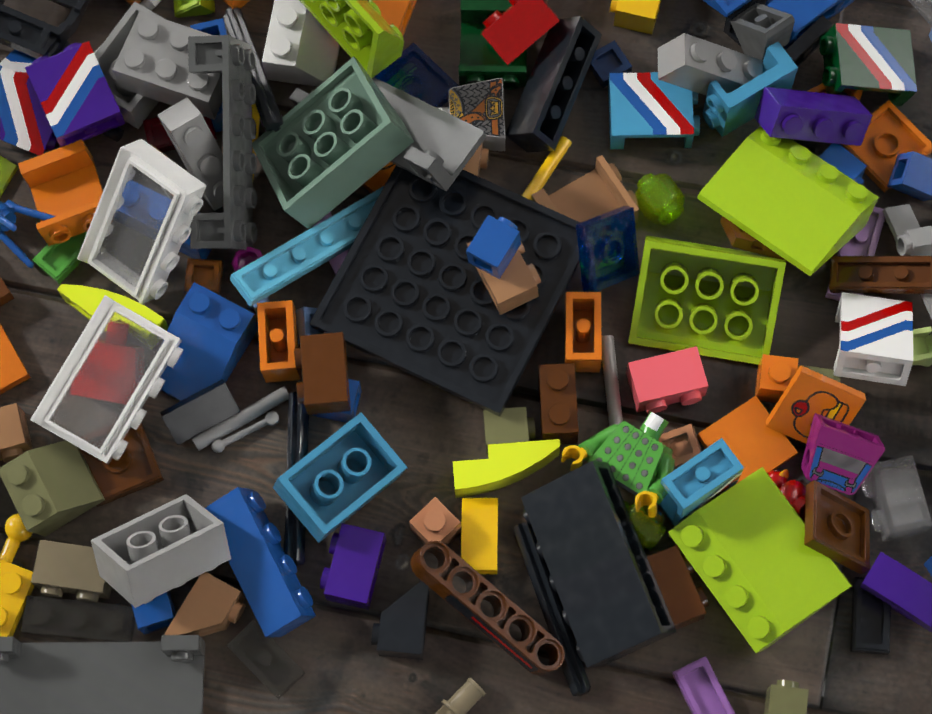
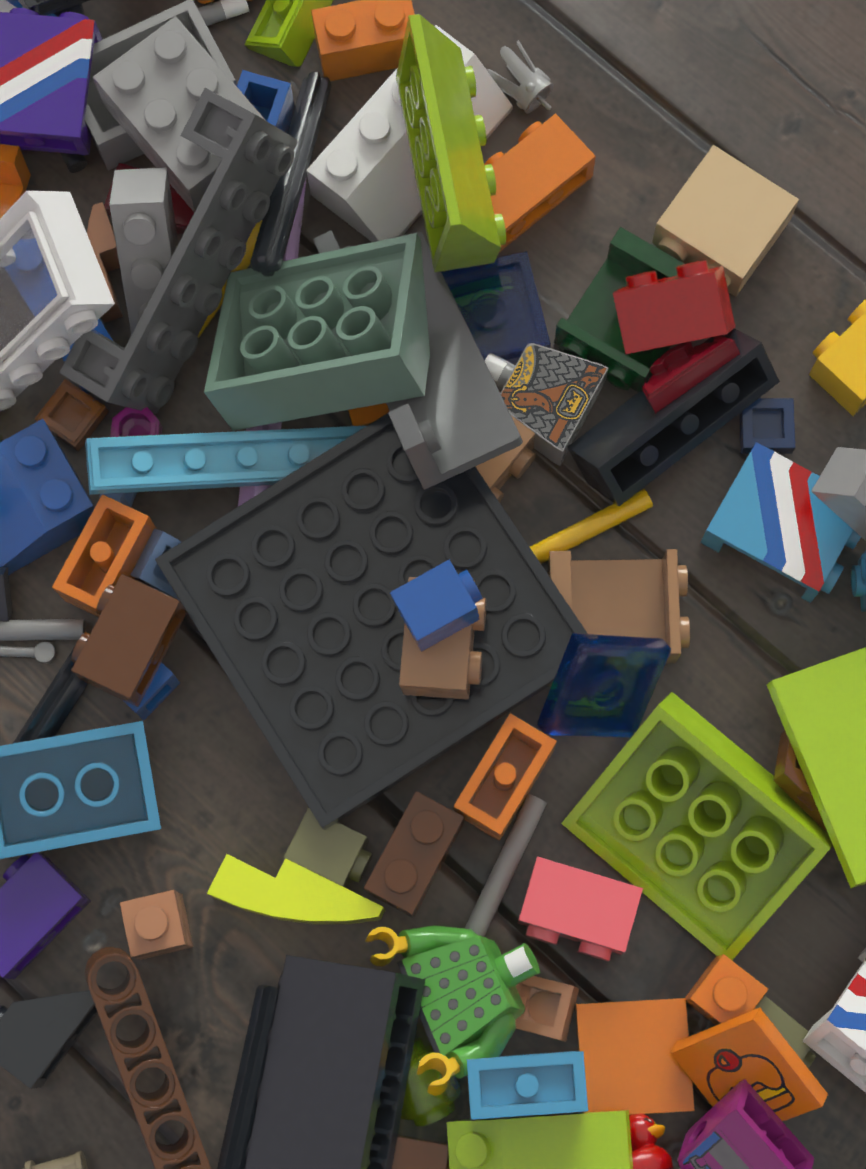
camera: 30 degrees right, 5 degrees up
(480, 534) = (207, 969): yellow slope -> none
(546, 53) = (685, 368): none -> dark red tile
(659, 198) = (720, 652): clear neon green head -> none

